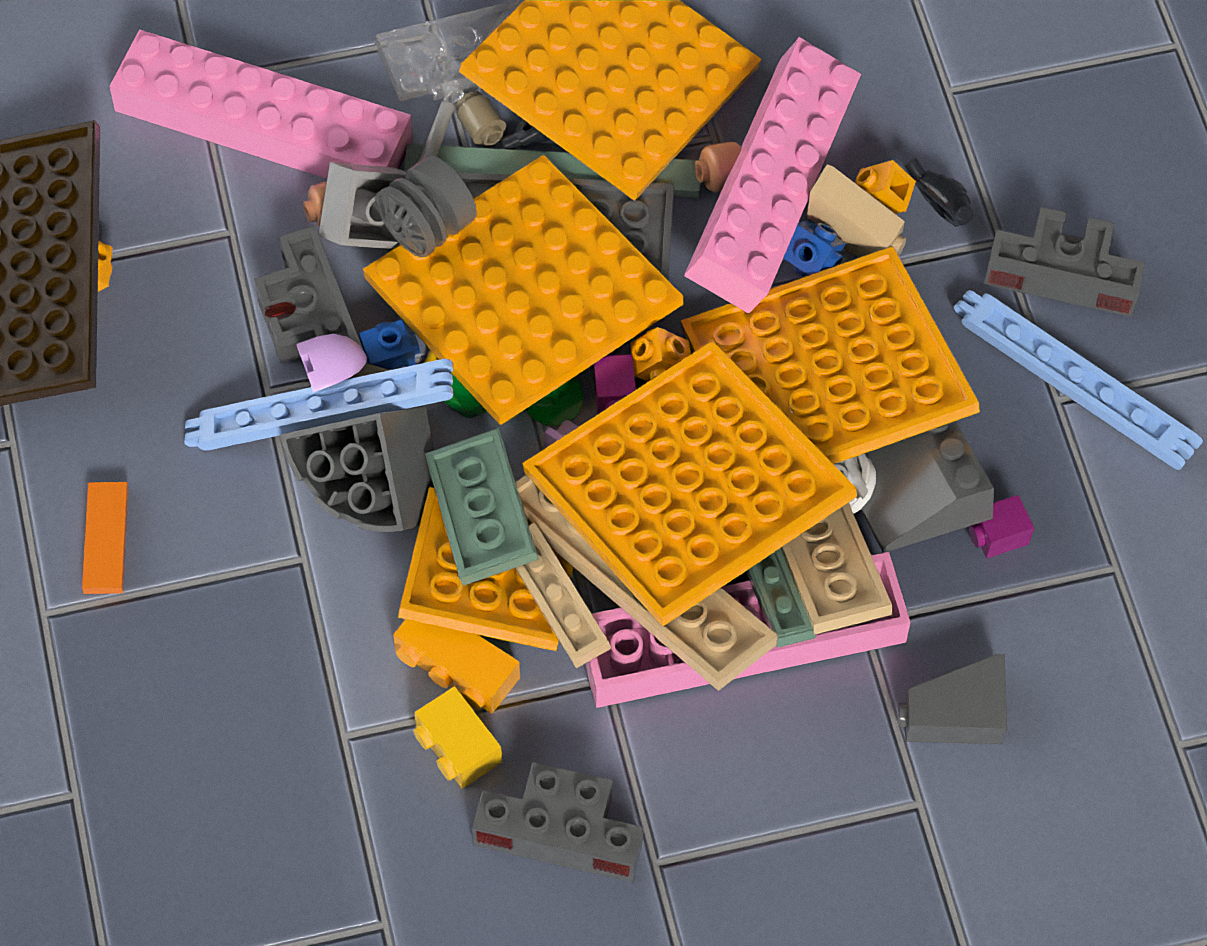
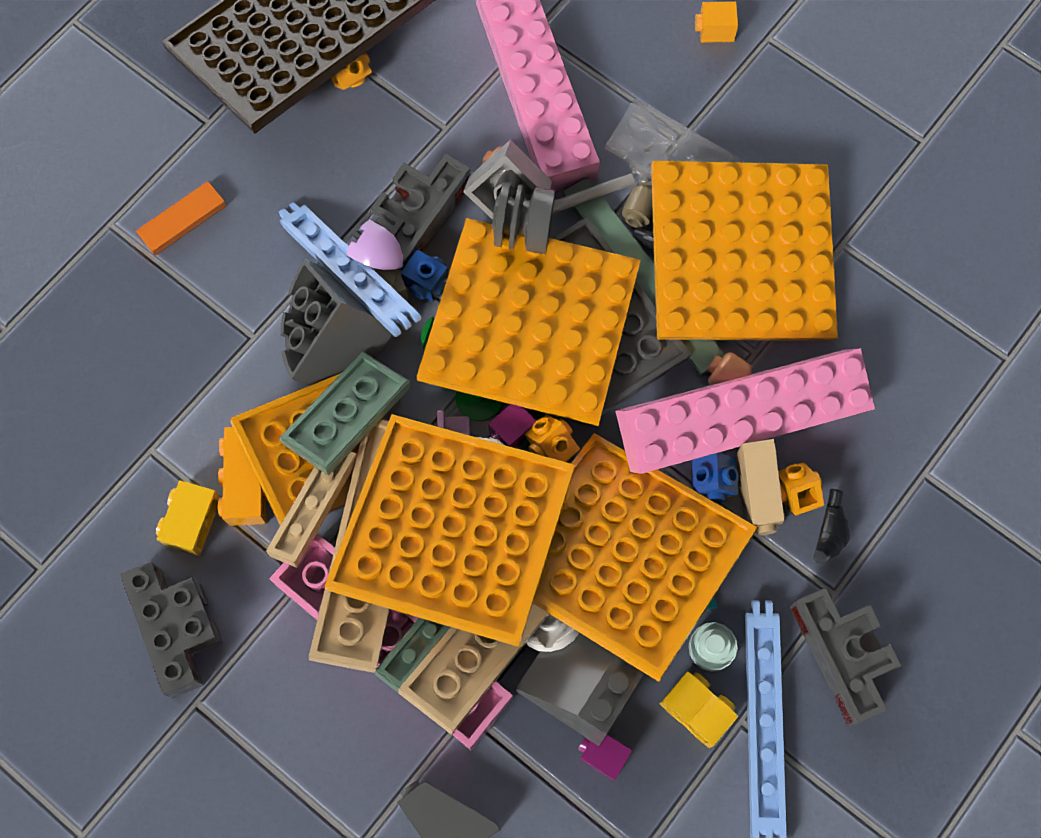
camera: 55 degrees right, 10 degrees up
(978, 365) = (712, 646): none -> light aqua plate
(1021, 420) = (699, 708): none -> yellow brick

